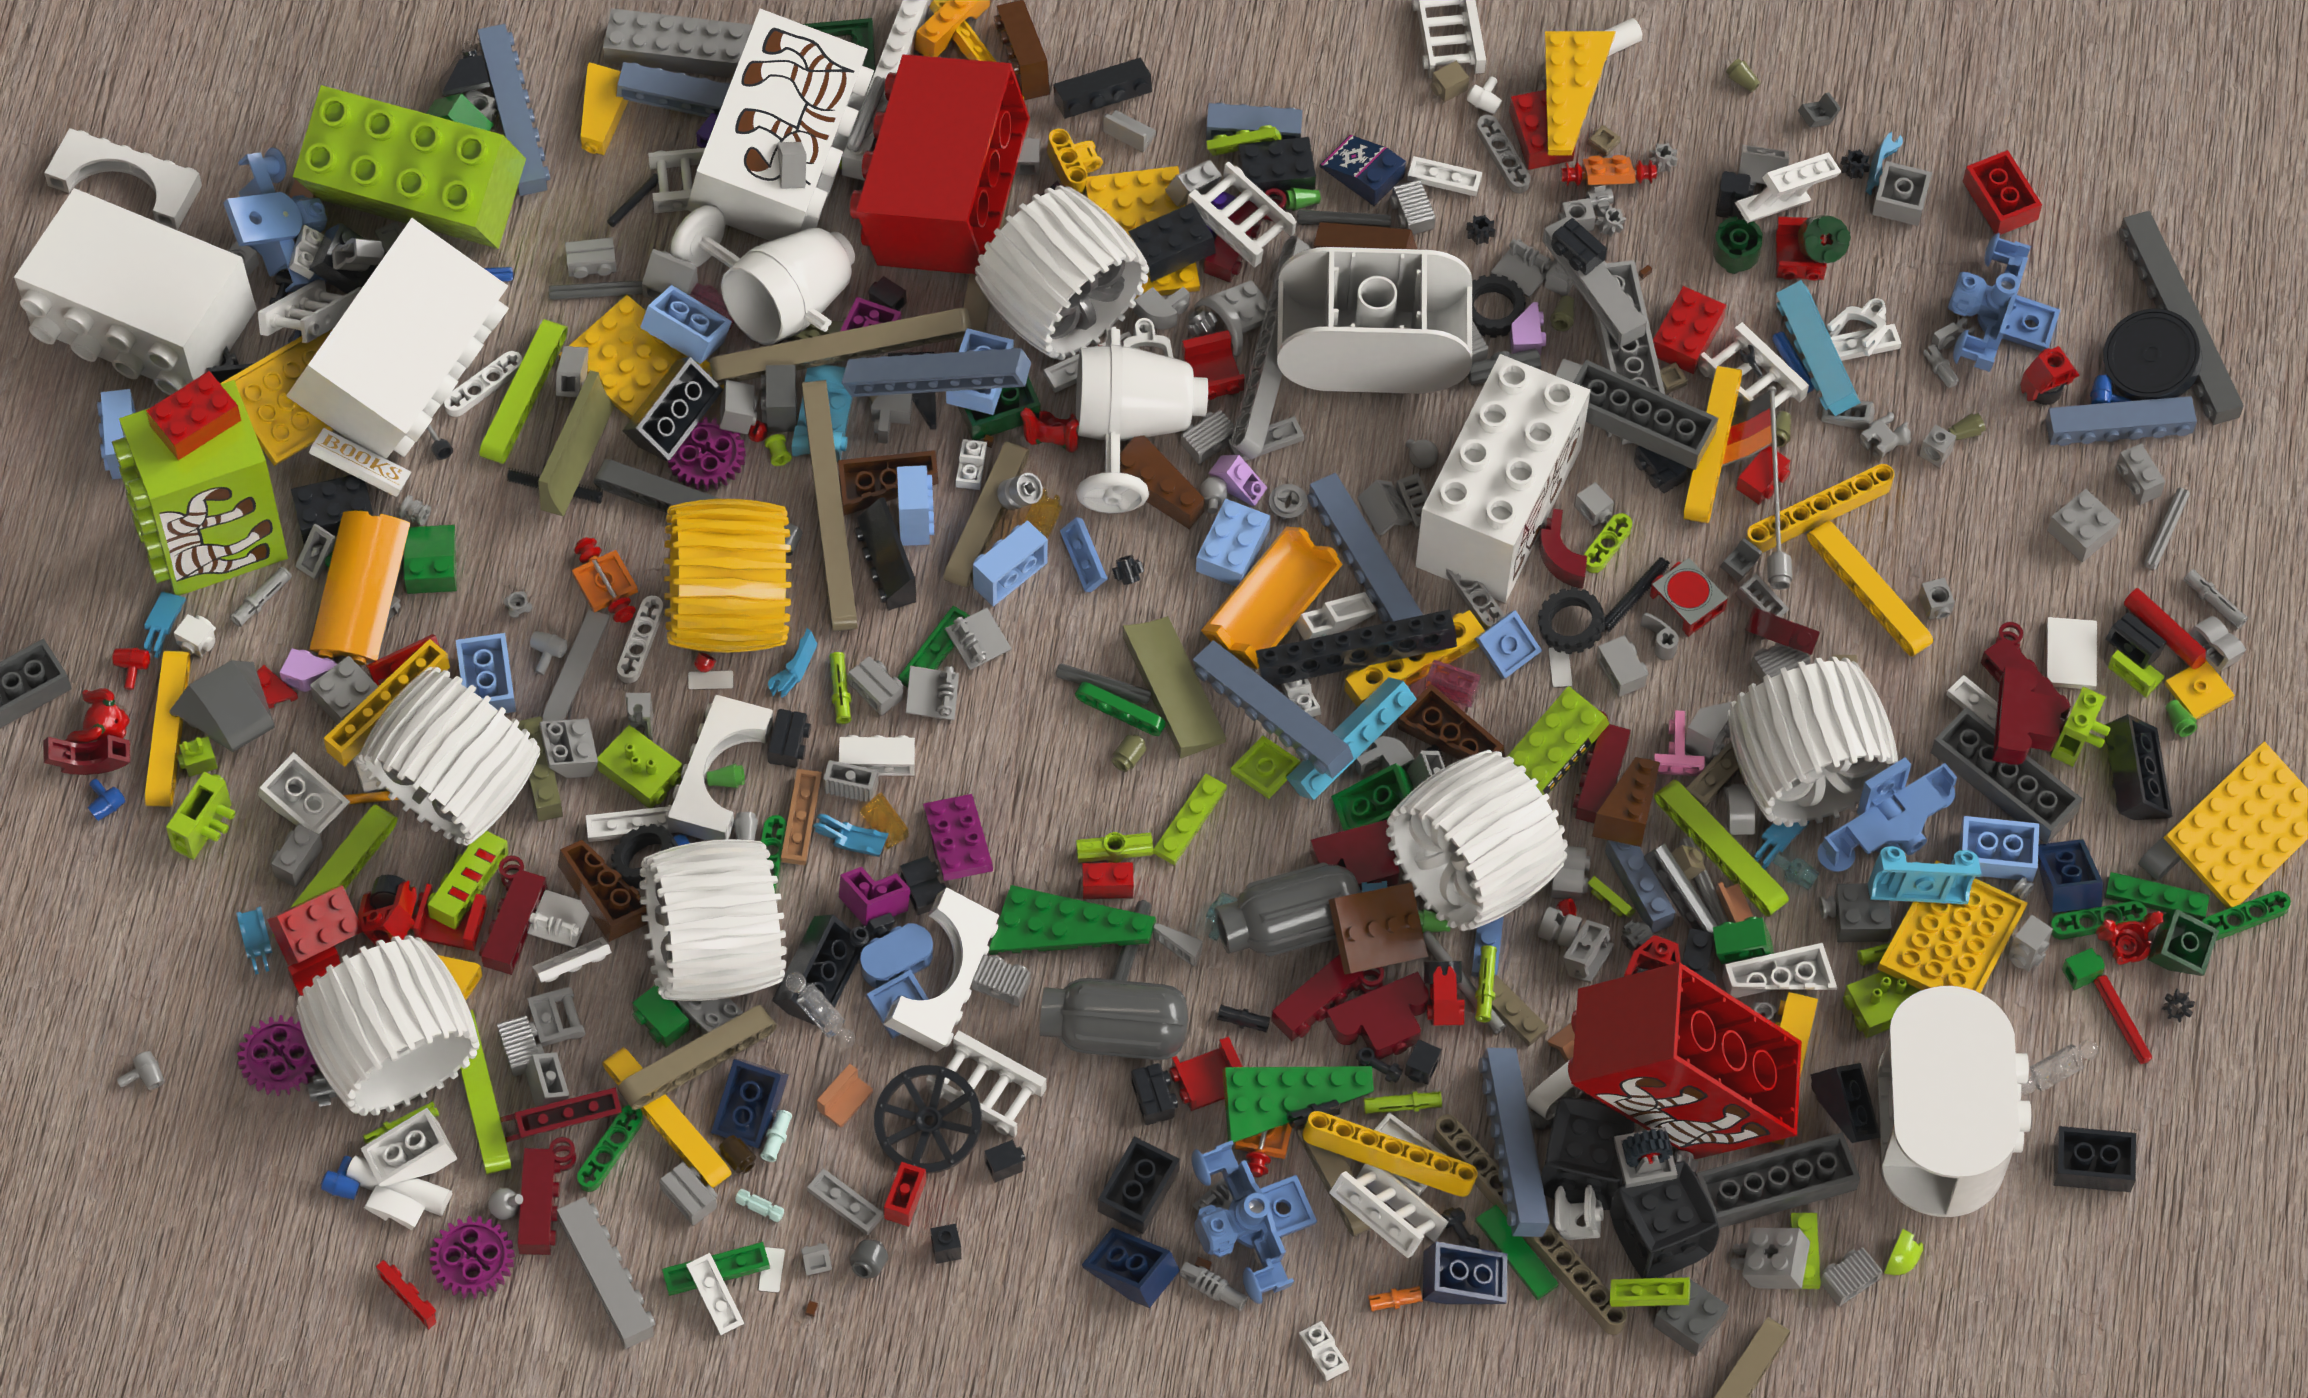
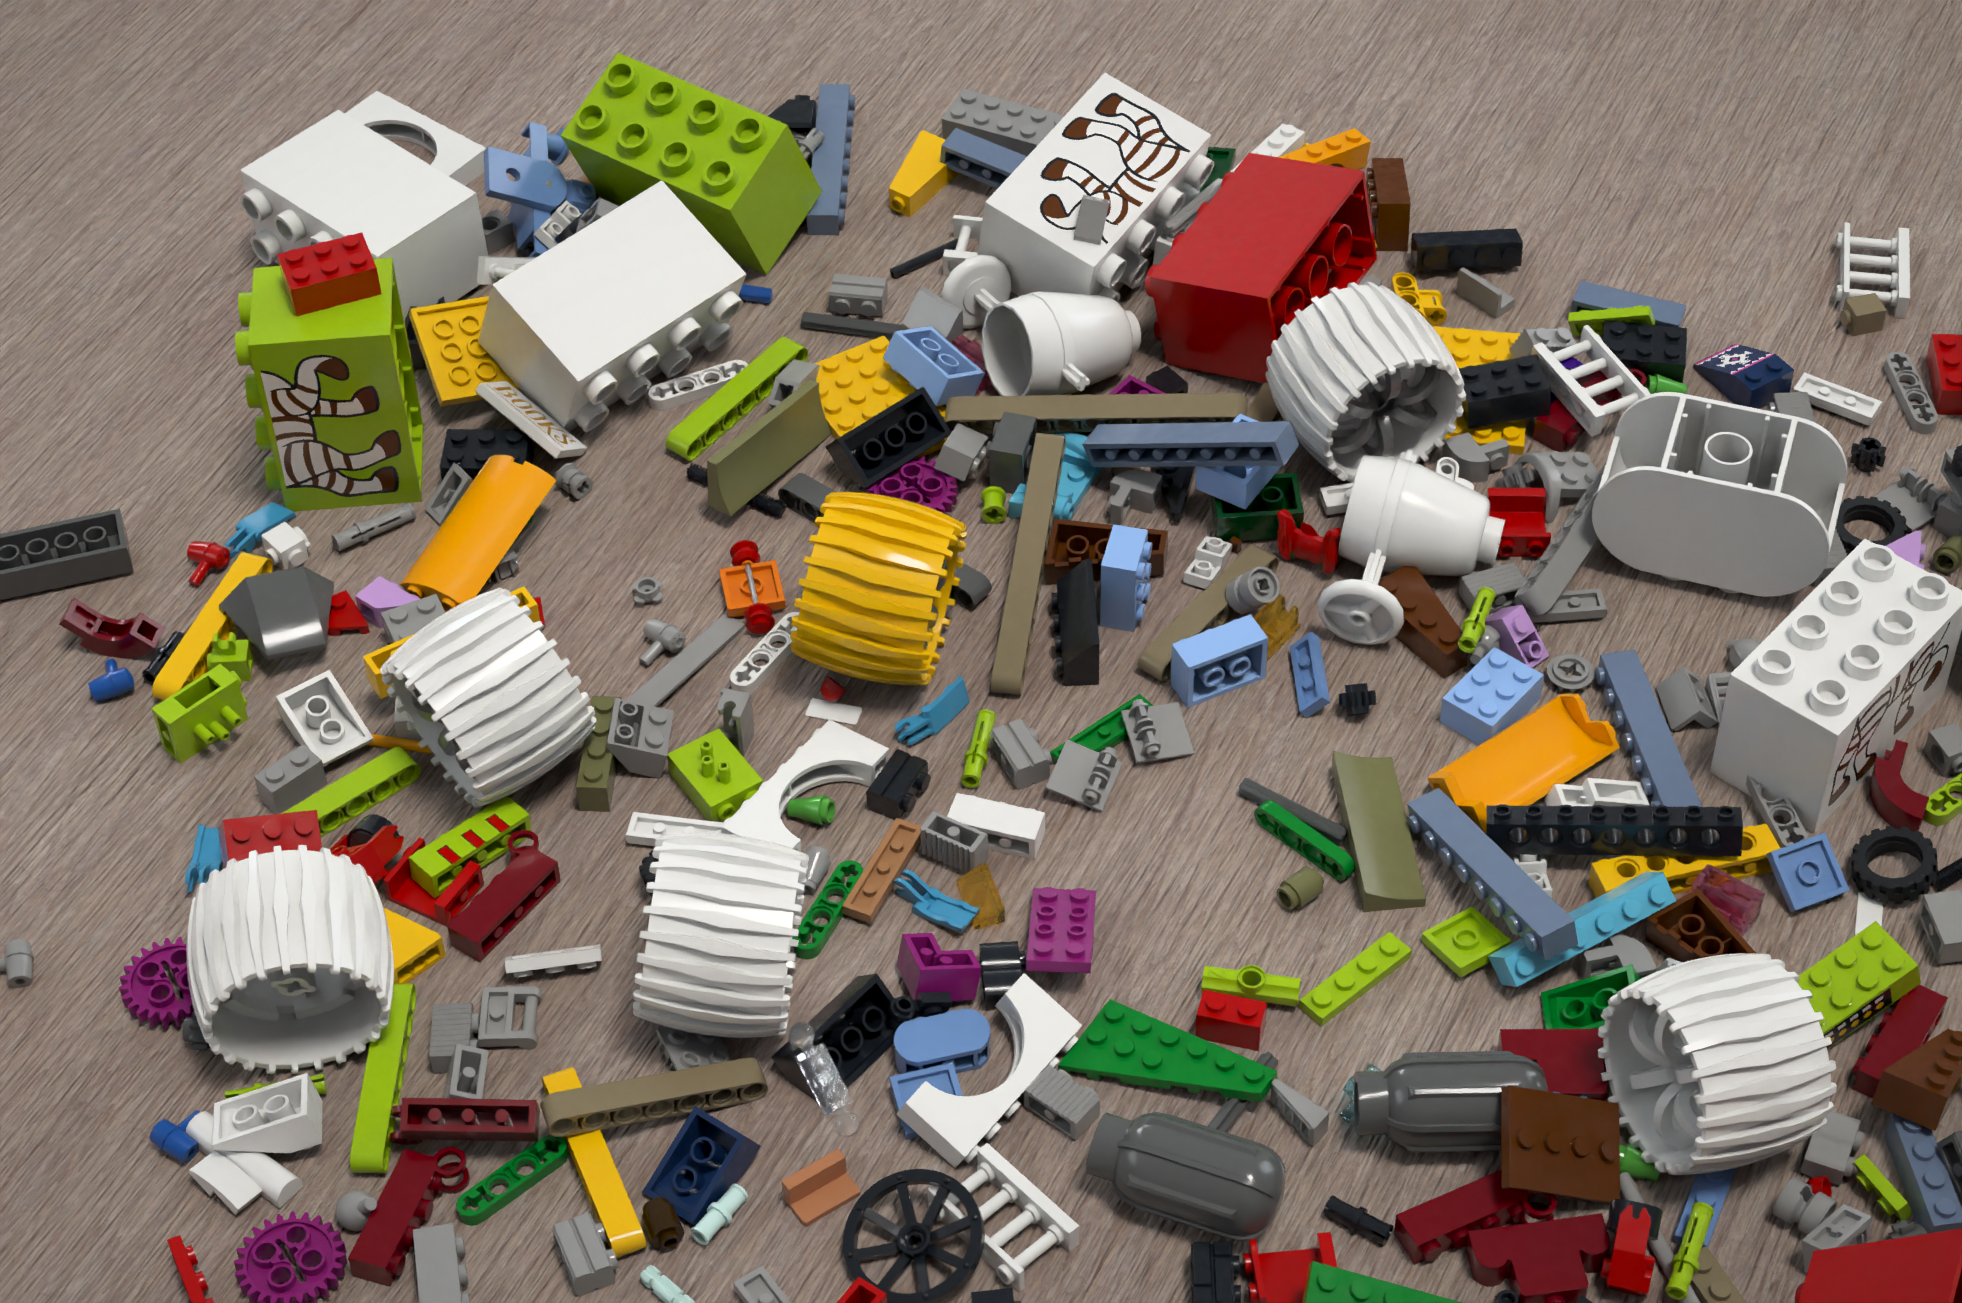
camera: 20 degrees right, 15 degrees down
(100, 718) = (144, 600): red hair -> none
(142, 753) = (161, 657): none -> black pin
(430, 559) = (569, 531): green slope -> none
(441, 447) = (627, 427): black hinge -> none
(487, 667) = (587, 639): light blue brick -> none
(492, 110) = (810, 143): none -> light grey axle
(559, 919) = (558, 914): white hinge -> none
(602, 891) = (615, 890): reddish brown wedge -> none
(660, 1016) = (632, 1045): green brick -> none
(761, 432) = (980, 483): red hinge -> none
(1205, 484) = (1470, 637): none -> lime pin
(1483, 98) = (1900, 336): white piece -> none

